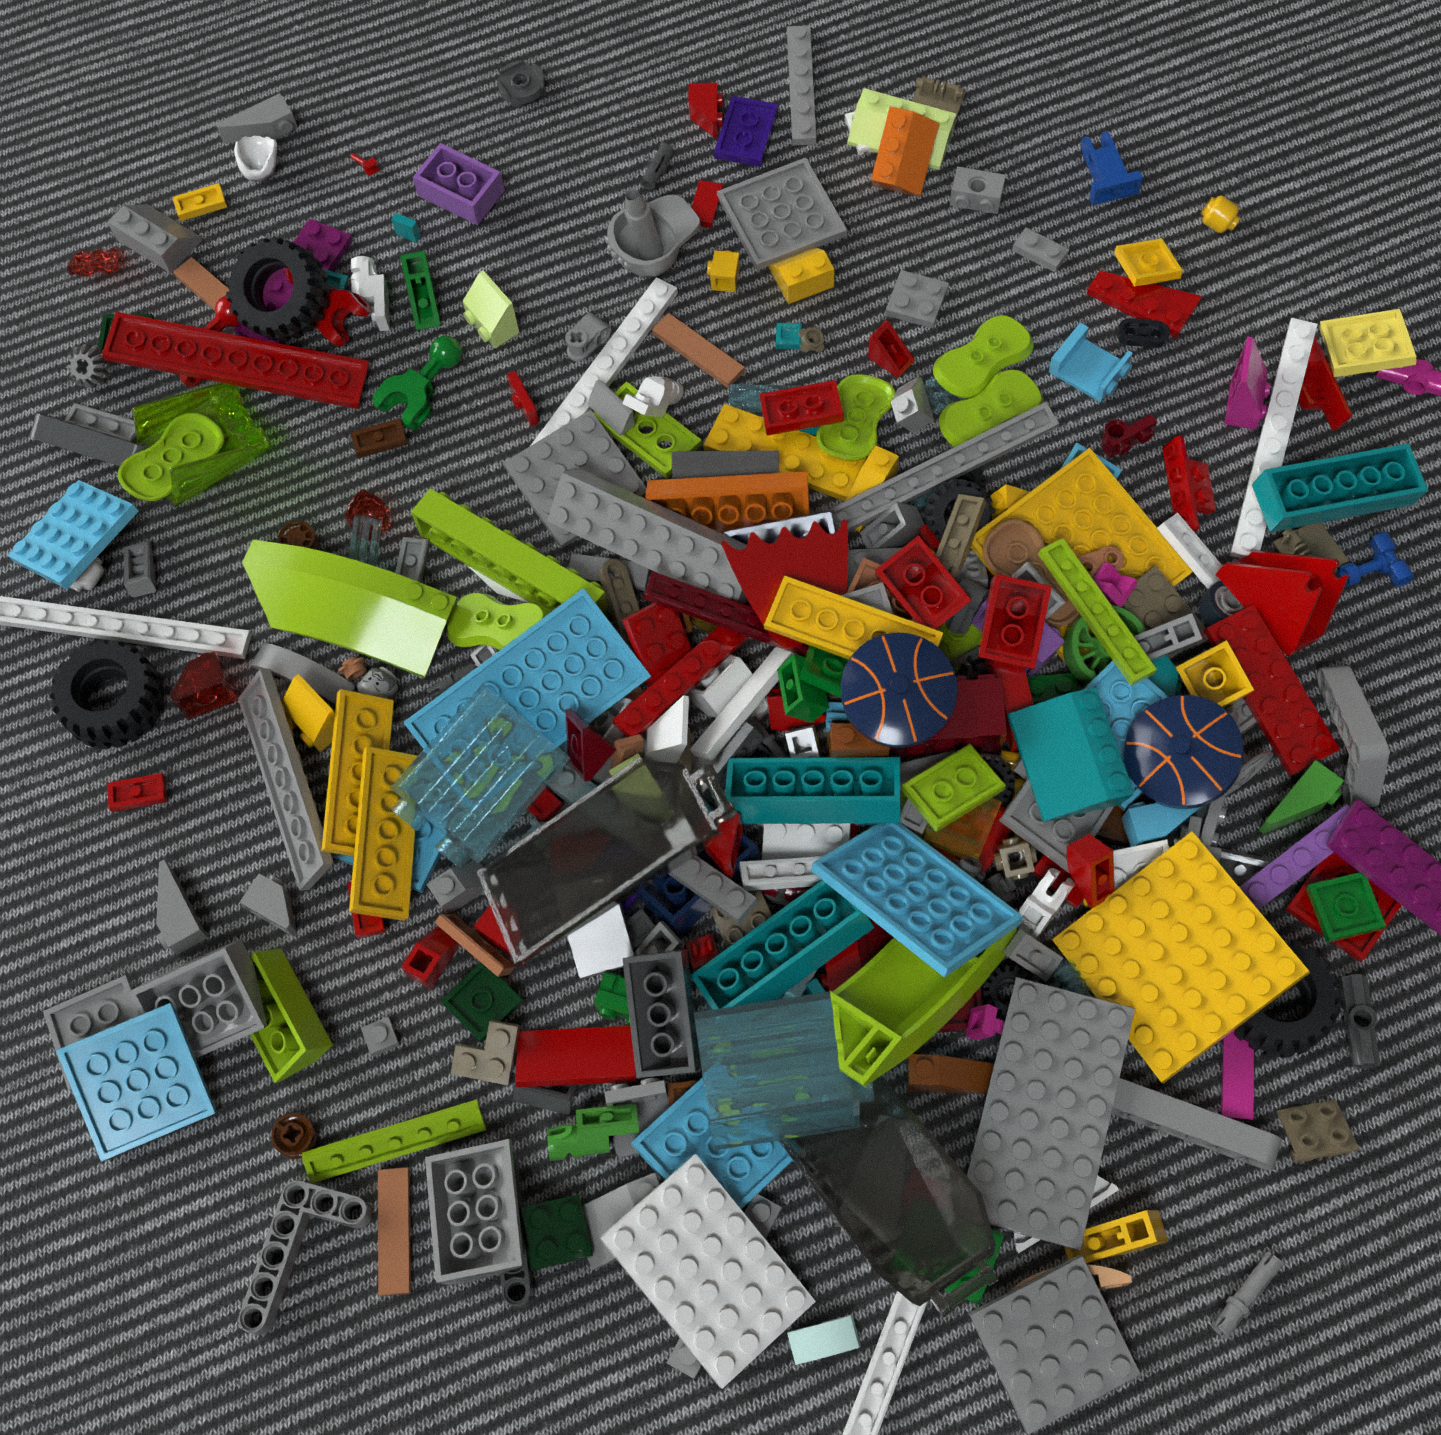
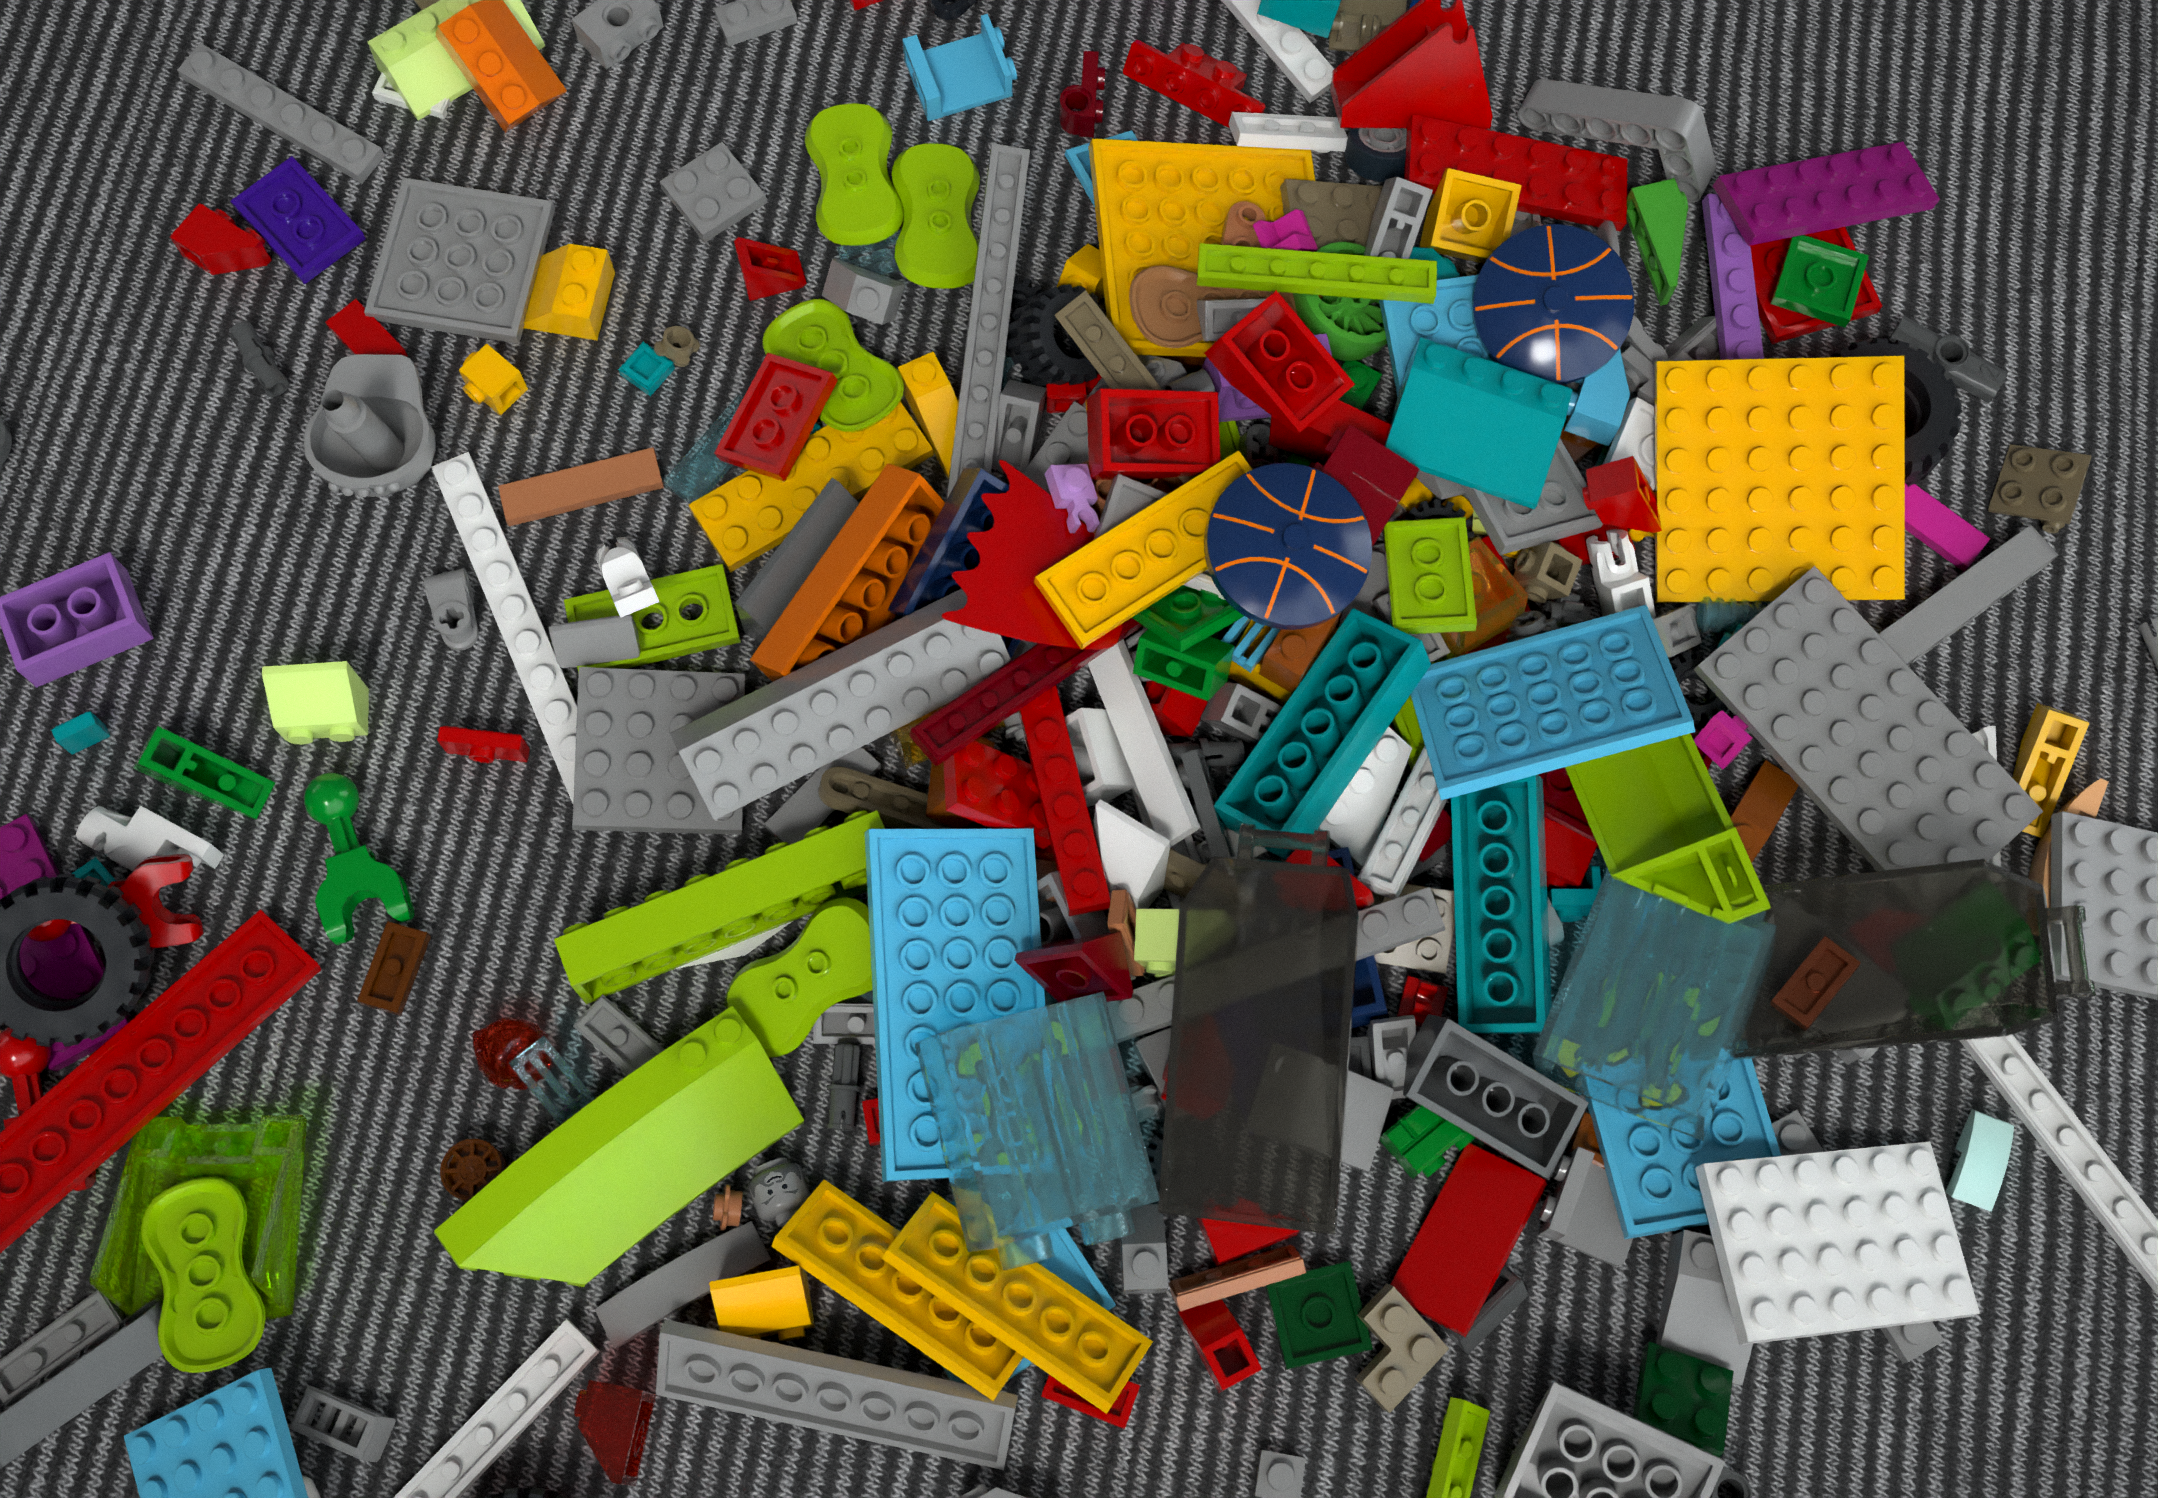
camera: 65 degrees left, 5 degrees up
(592, 1131) = (1579, 1276): bright green plate -> none
(855, 1160) = (1815, 983): none -> copper plate
(858, 569) = (1074, 490): none -> lavender plate

